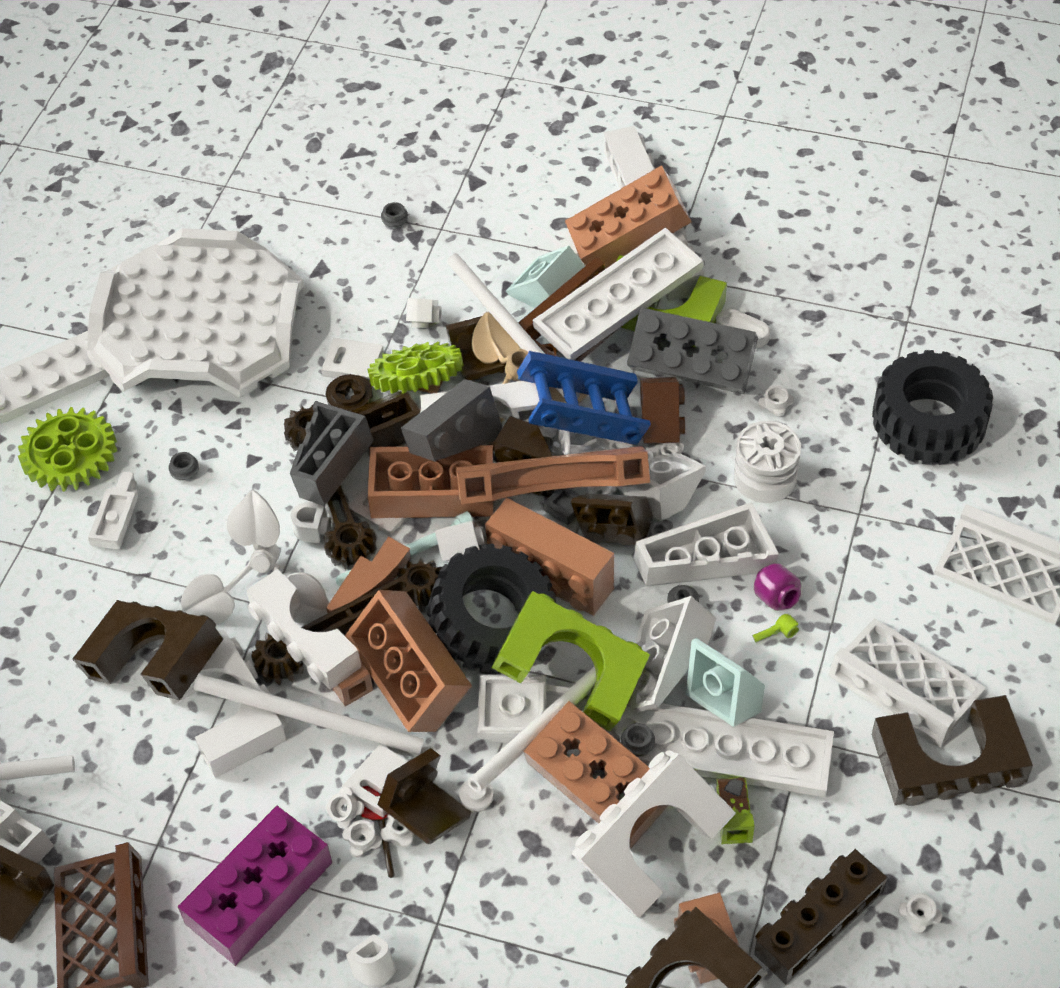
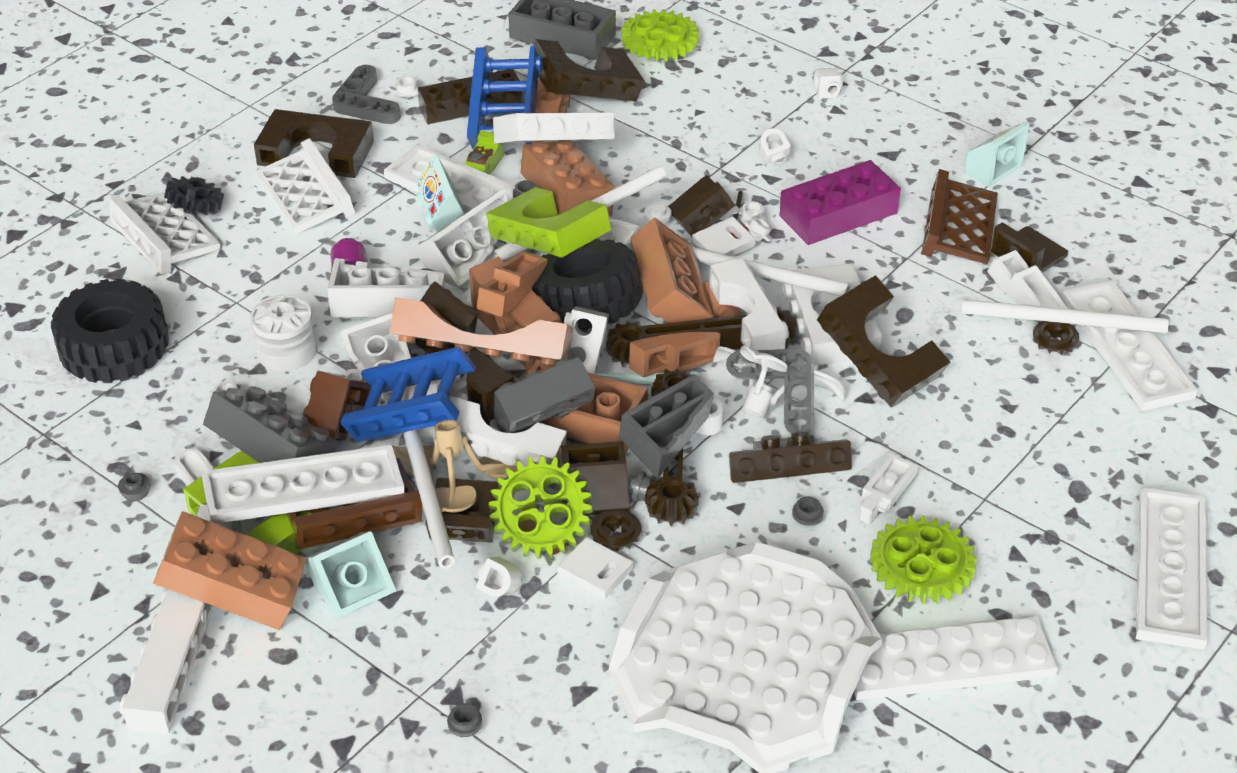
camera: 160 degrees left, 10 degrees down
(210, 519) = (789, 457): none -> dark brown bracket
(225, 564) = (792, 378): none -> dark grey beam
(550, 531) = (510, 283): none -> nougat slope
(776, 858) = (483, 86): none -> blue fence
(782, 296) = (134, 486): none -> dark grey plate
(784, 624) = (362, 238): lime hand -> none
(972, 865) = (351, 102): none -> dark grey beam
(1023, 603) = (194, 195): none -> black gear

